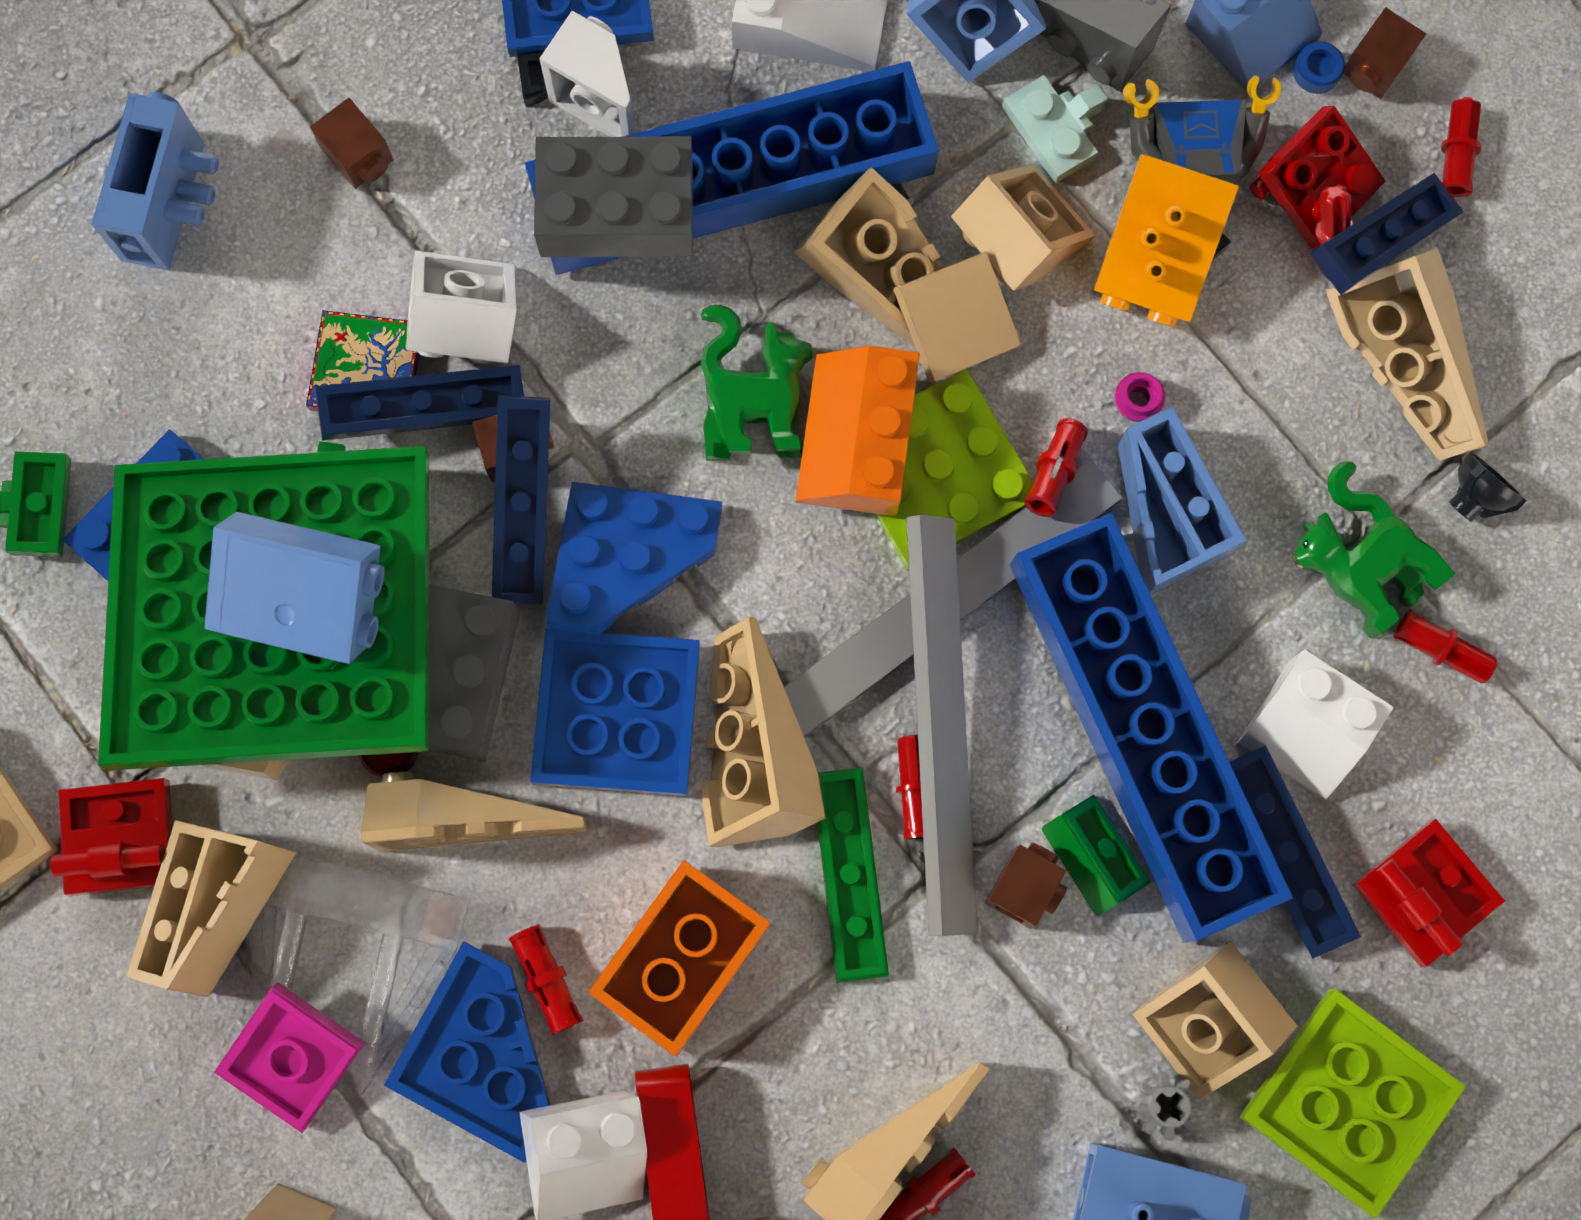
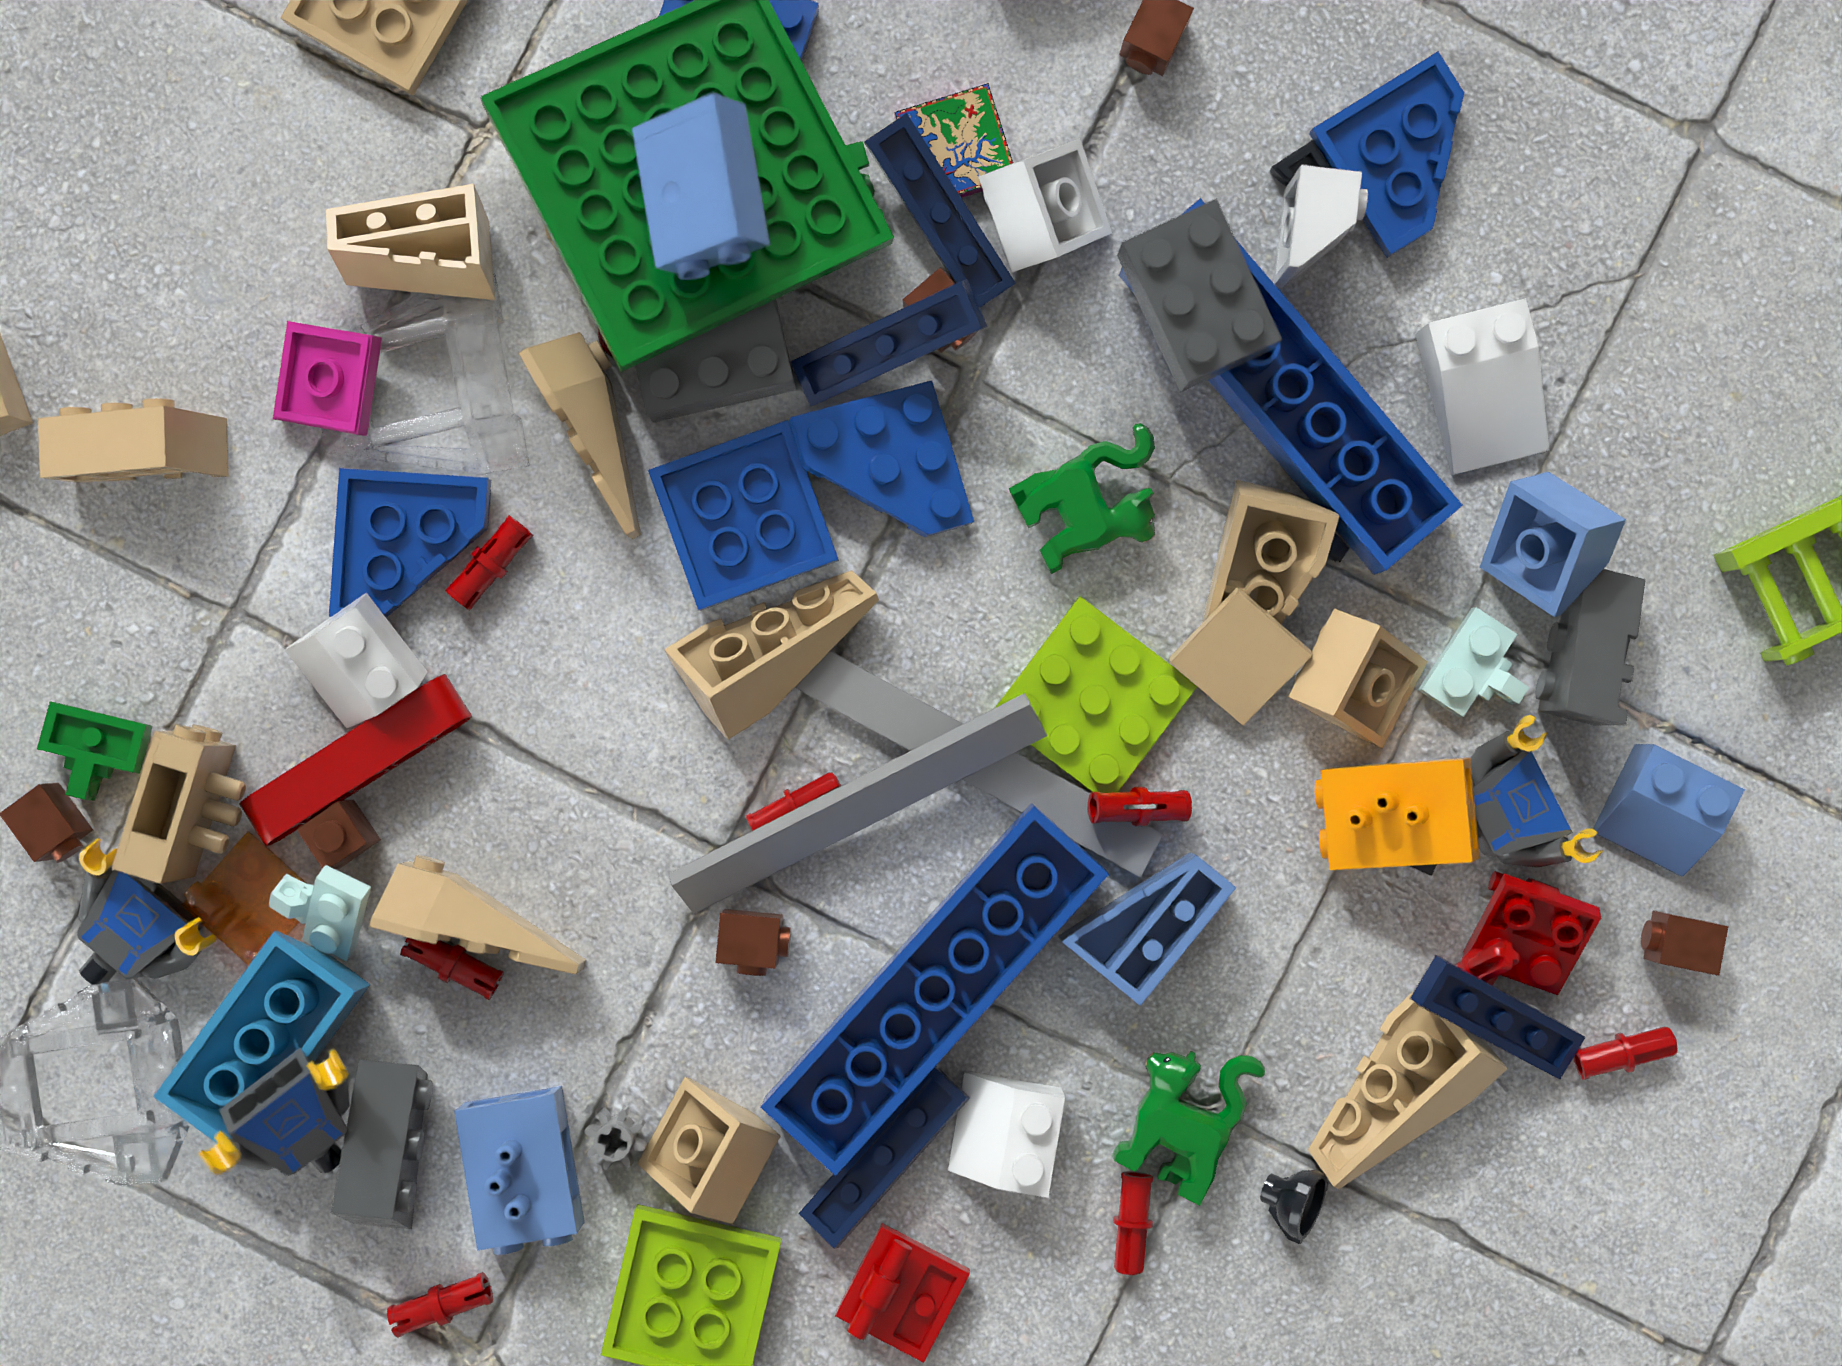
camera: 75 degrees right, 10 degrees up
(112, 836) = (443, 136): red plate -> none
(680, 958) = (552, 669): orange brick -> none
(850, 878) = (693, 783): green tile -> none
(858, 429) = (1089, 613): orange slope -> none
(1095, 855) = (808, 988): green slope -> none
(1143, 383) = (1258, 858): dark pink plate -> none
(1318, 67) = (1646, 887): blue tile -> none

